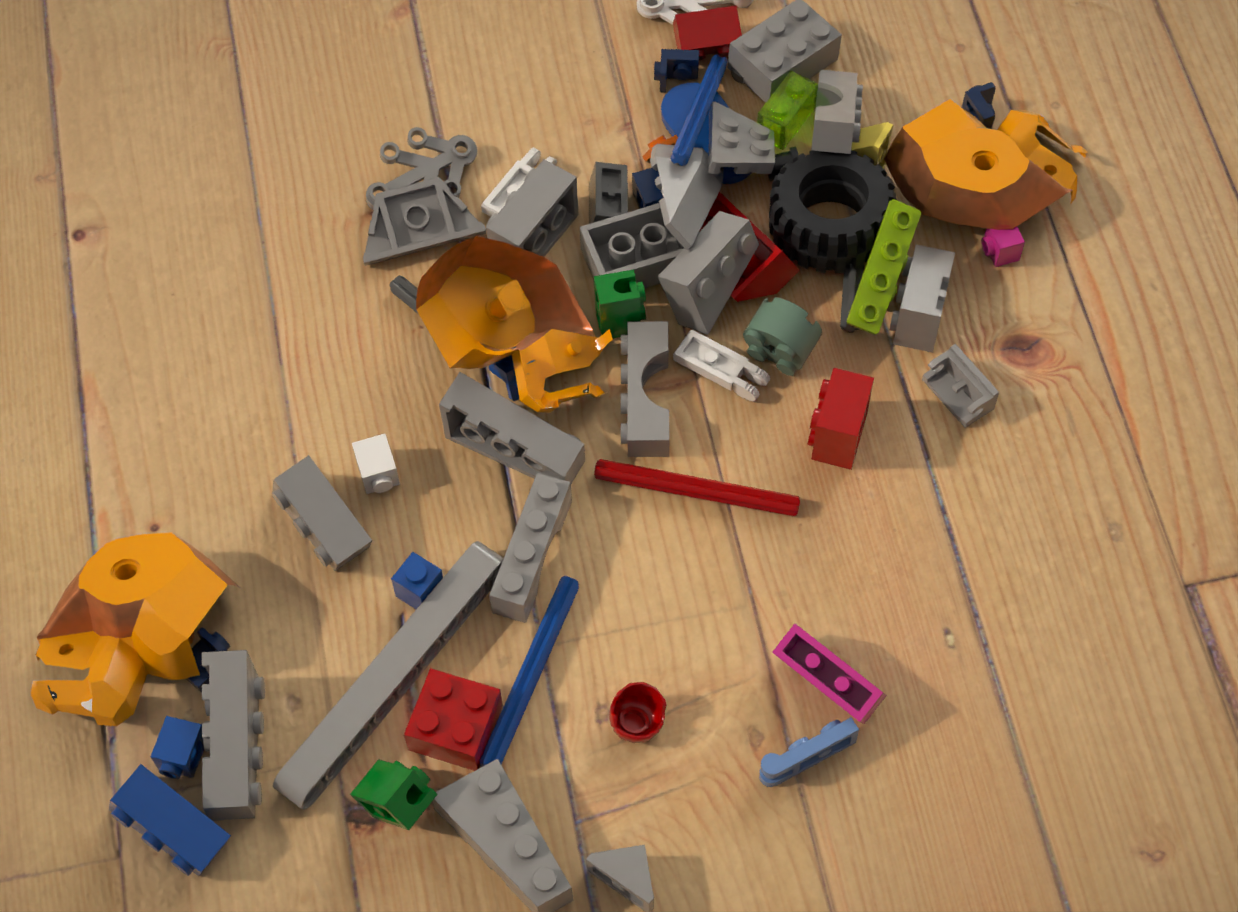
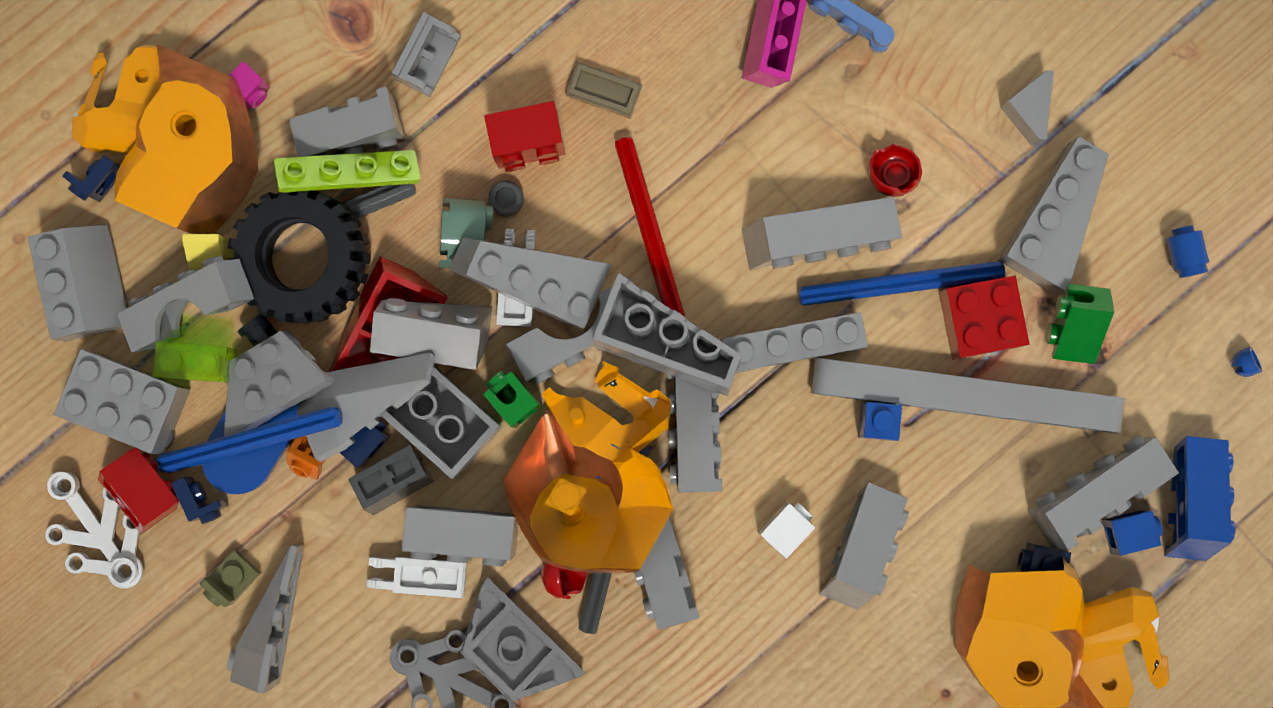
camera: 120 degrees left, 25 degrees up
(397, 350) = (666, 583): none -> light grey wedge
(538, 65) = (262, 647): none -> light grey wedge
(596, 423) = (662, 339): none -> light grey wedge
(600, 64) = (229, 580): none -> olive bracket
(613, 618) = (821, 232): none -> light grey wedge
(711, 358) = (542, 280): none -> light grey wedge
(797, 392) = (506, 198): none -> dark grey tile
(853, 514) = (603, 90): none -> dark tan tile
(900, 63) = (78, 281): none -> light grey slope

